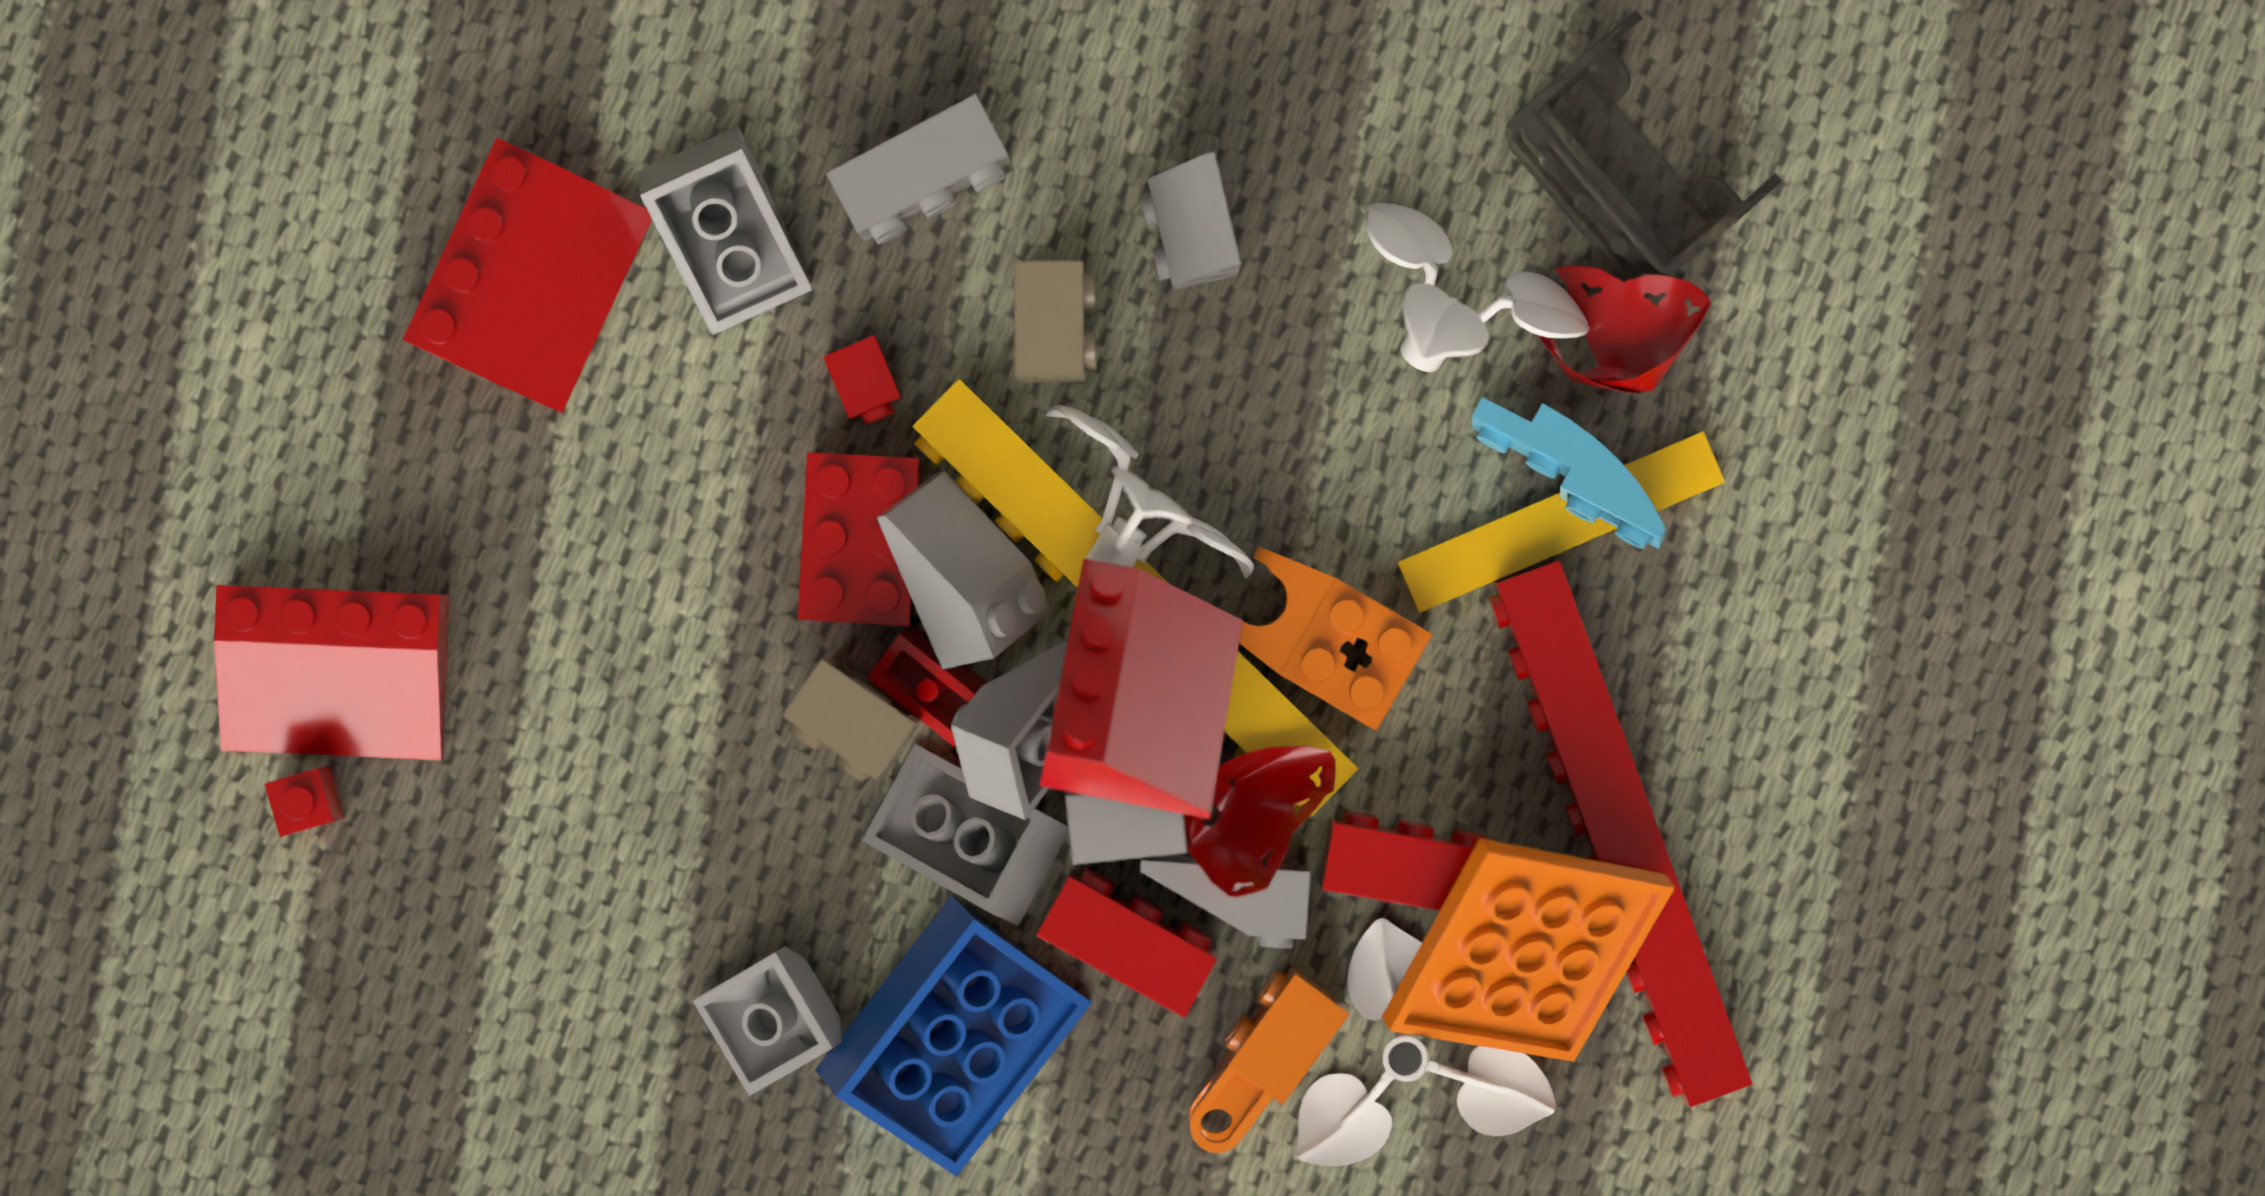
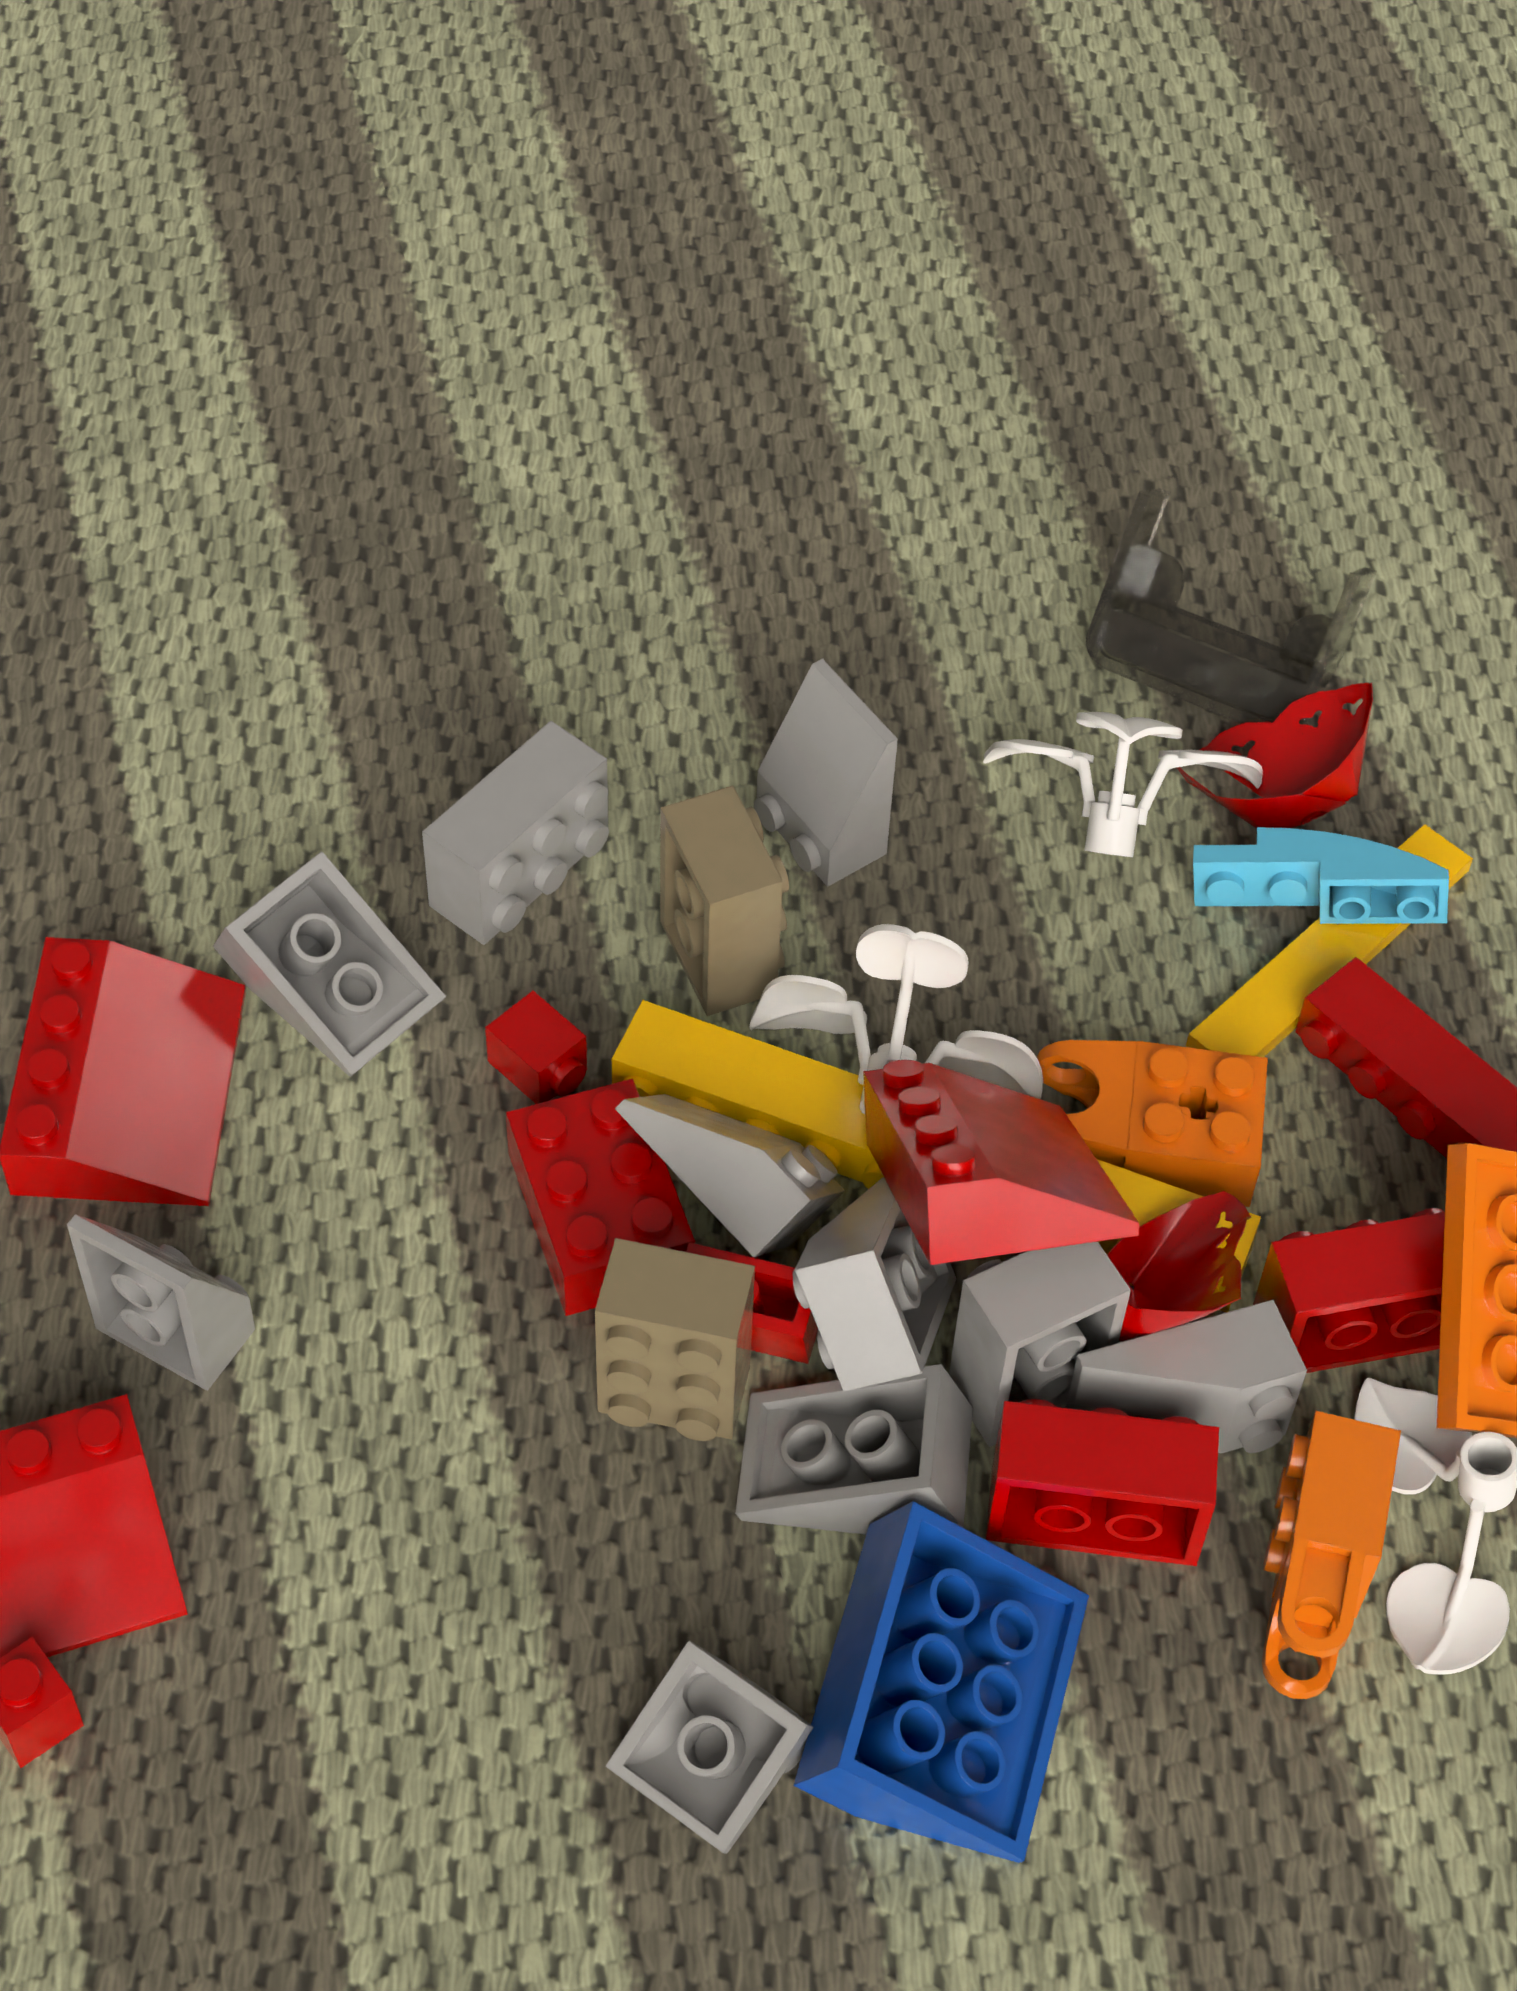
camera: 30 degrees left, 35 degrees down
(494, 514) = (160, 1301): none -> light grey slope

